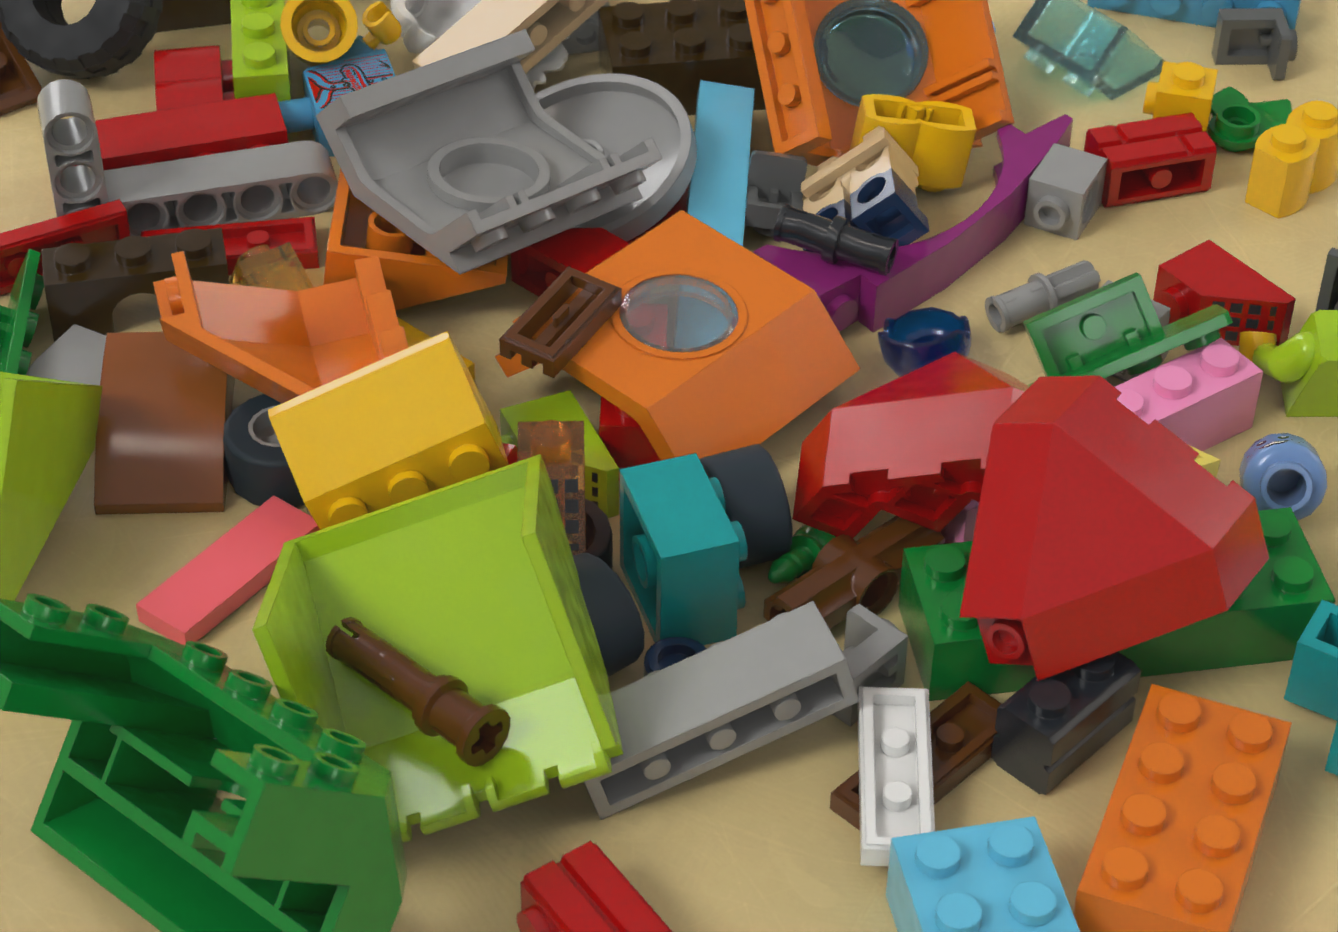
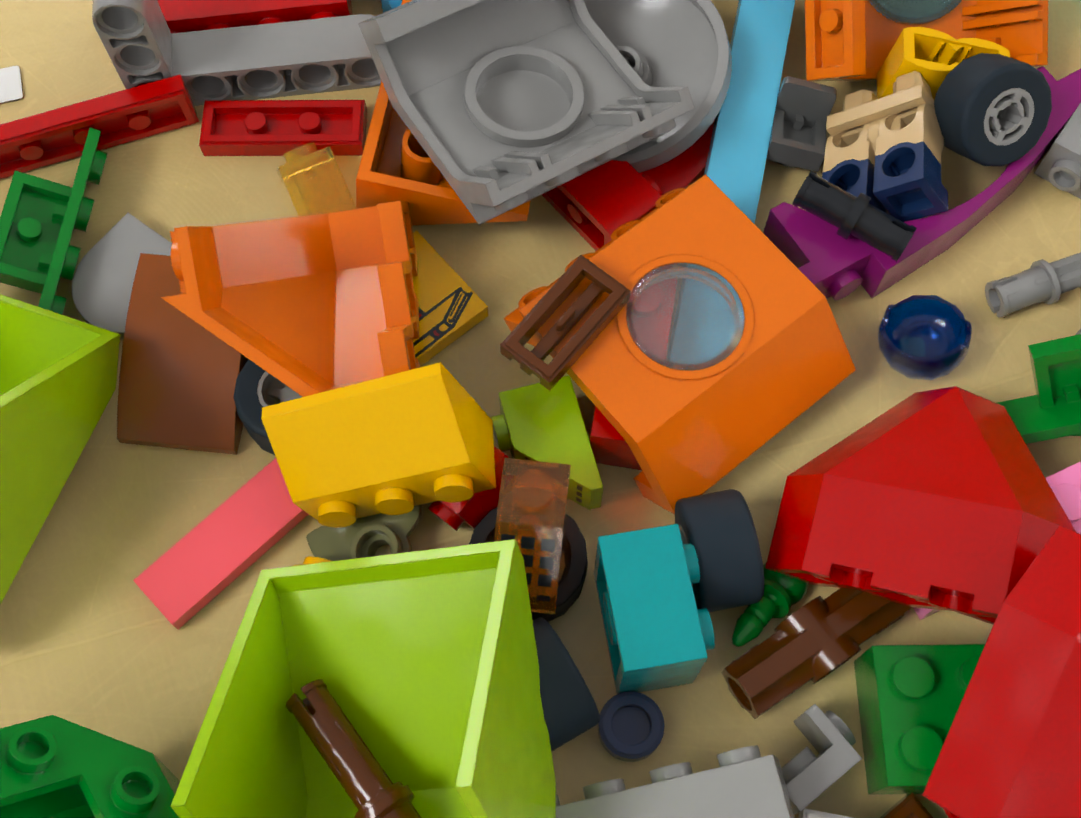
camera: 10 degrees right, 25 degrees up
(92, 278) = (144, 170): dark brown arch -> none
(957, 168) = (993, 108): none -> black wheel

